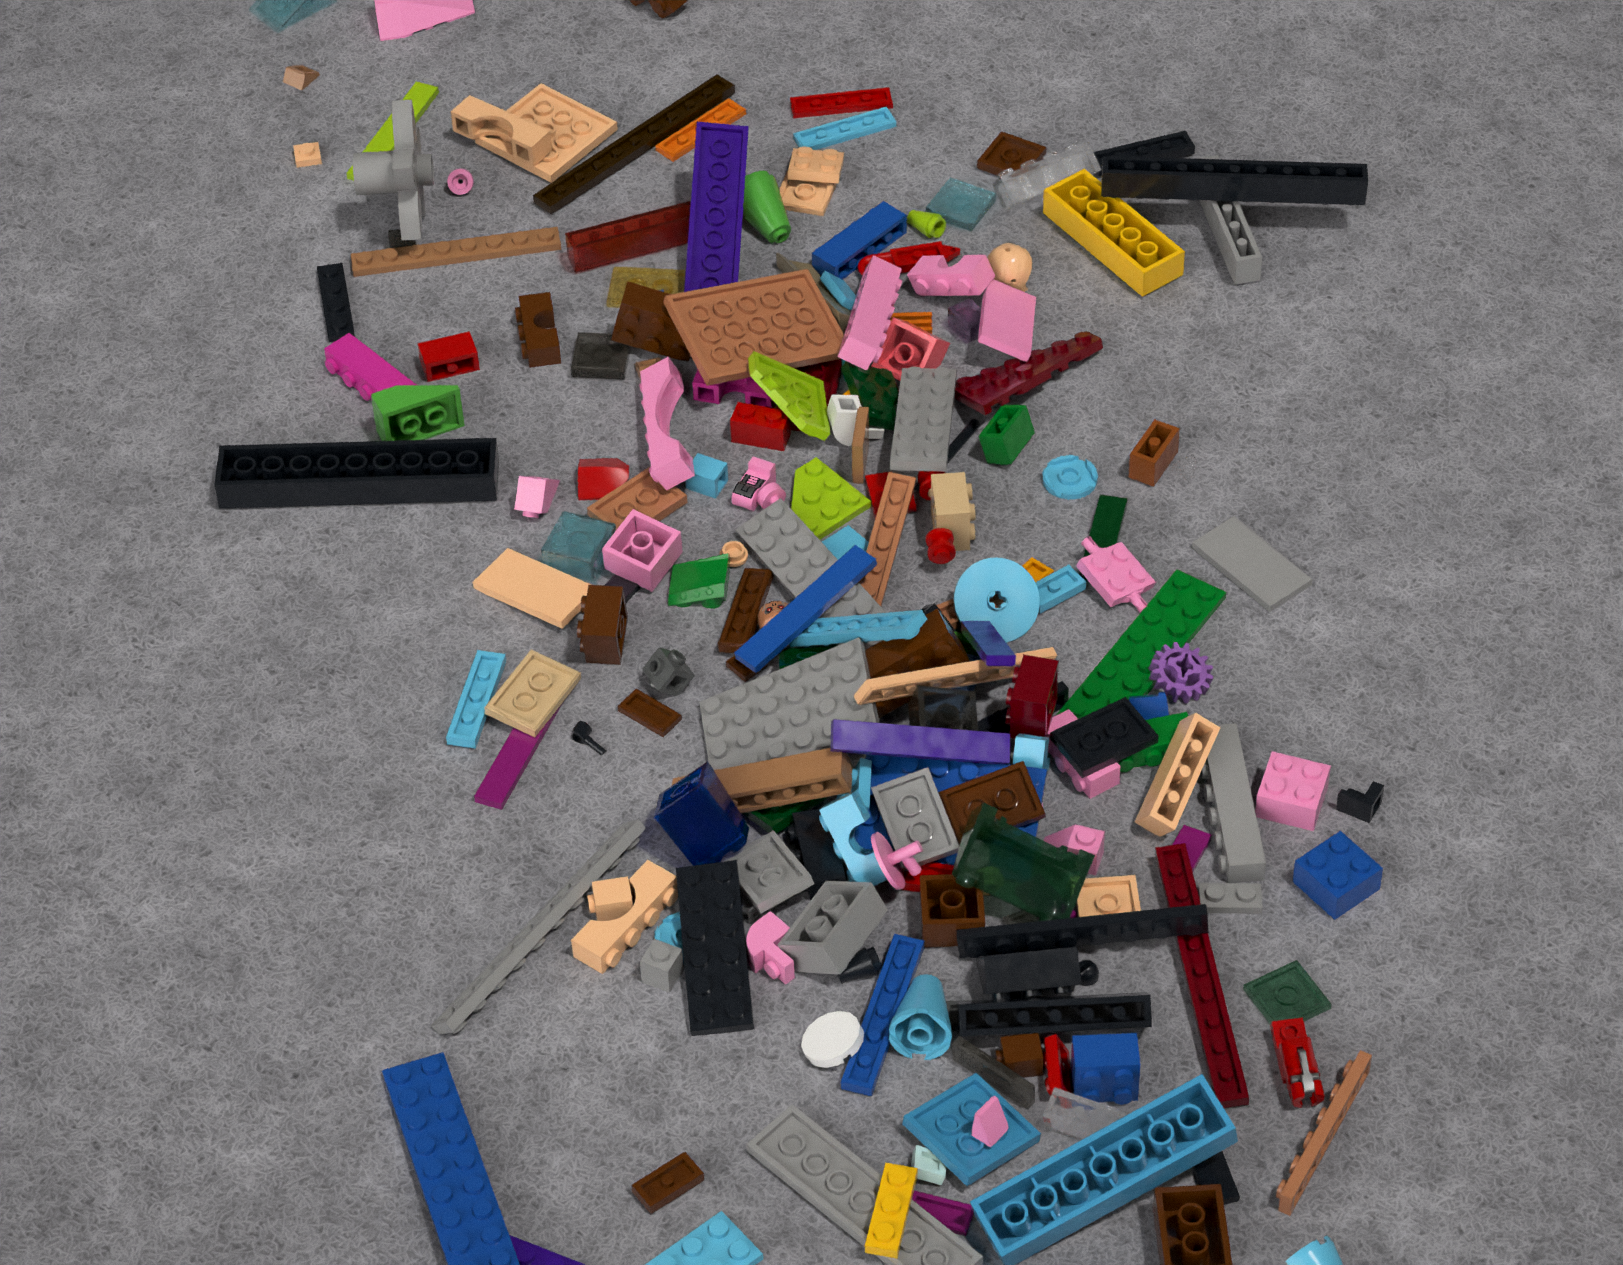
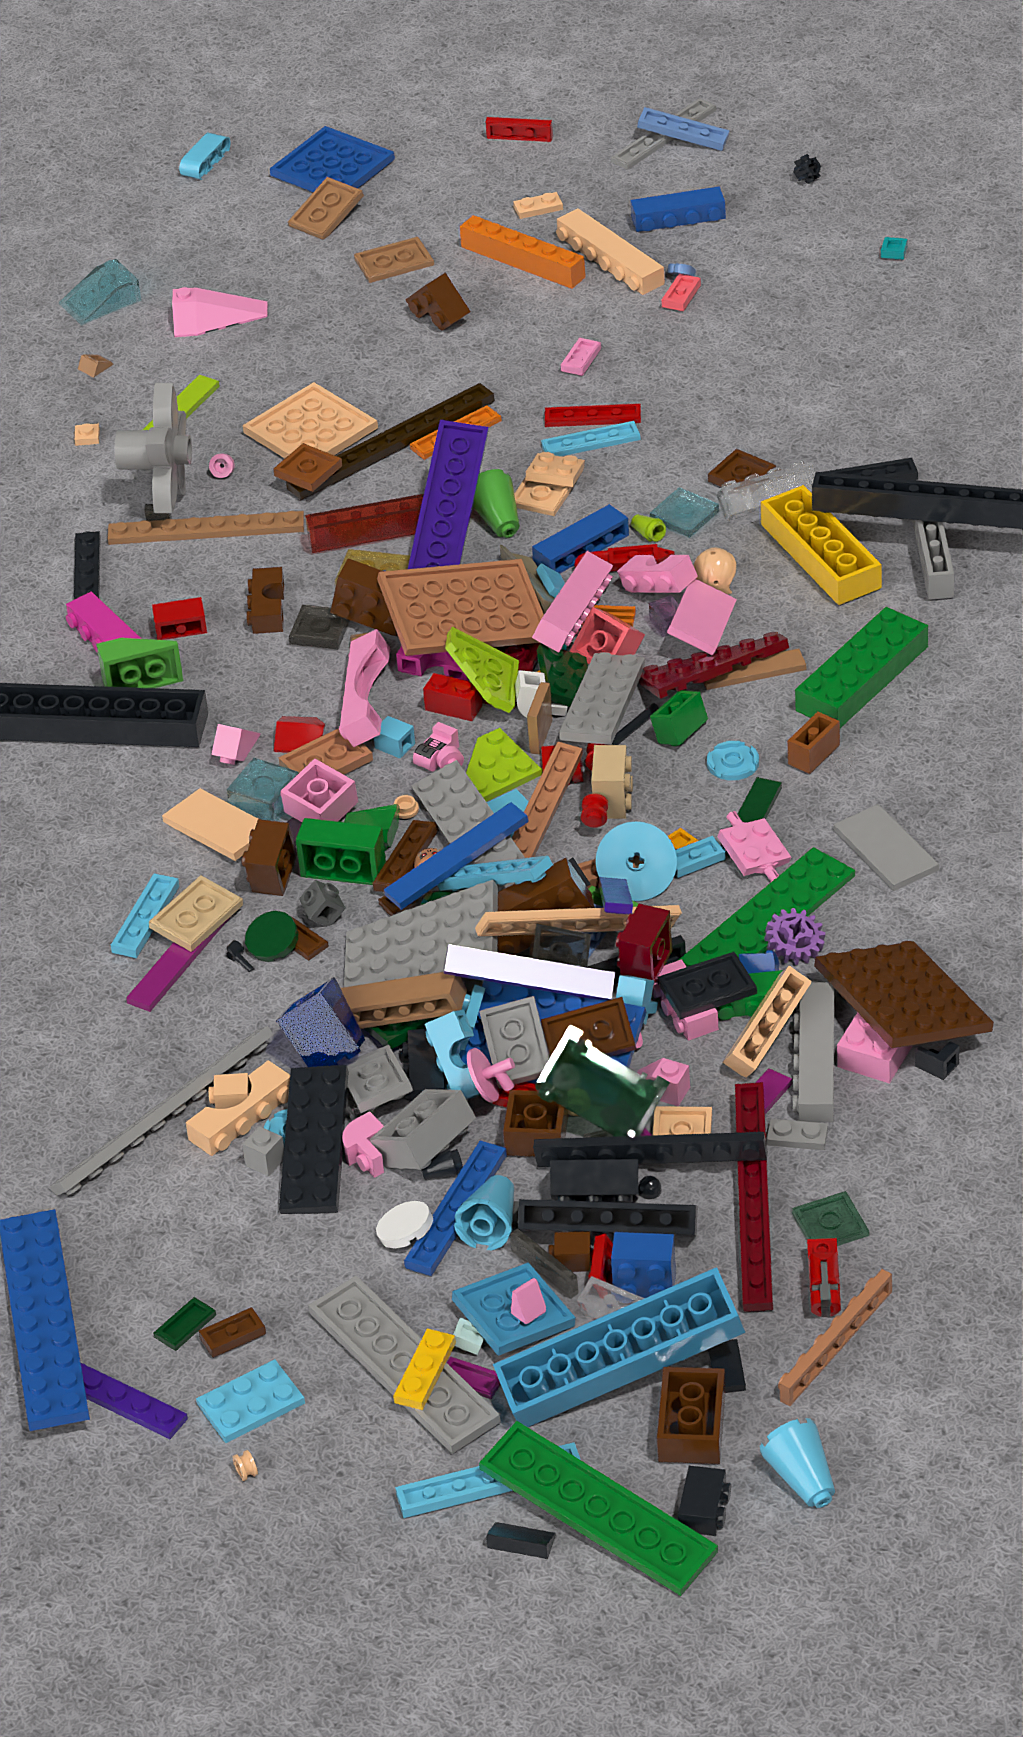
camera: 10 degrees right, 5 degrees down
(478, 119) = (247, 410): light nougat arch -> none
(555, 178) = (307, 467): none -> dark orange plate
(612, 1176) = (184, 1323): none -> dark green tile
(620, 713) = (271, 936): none -> dark green tile
(678, 611) = (340, 851): none -> green brick
(816, 39) = (580, 356): none -> bright pink plate
(1090, 368) = (760, 668): none -> medium nougat tile
(1185, 364) = (862, 666): none -> green brick
(1313, 732) = (903, 994): none -> reddish brown plate
(1337, 875) = (899, 1120): blue brick -> none

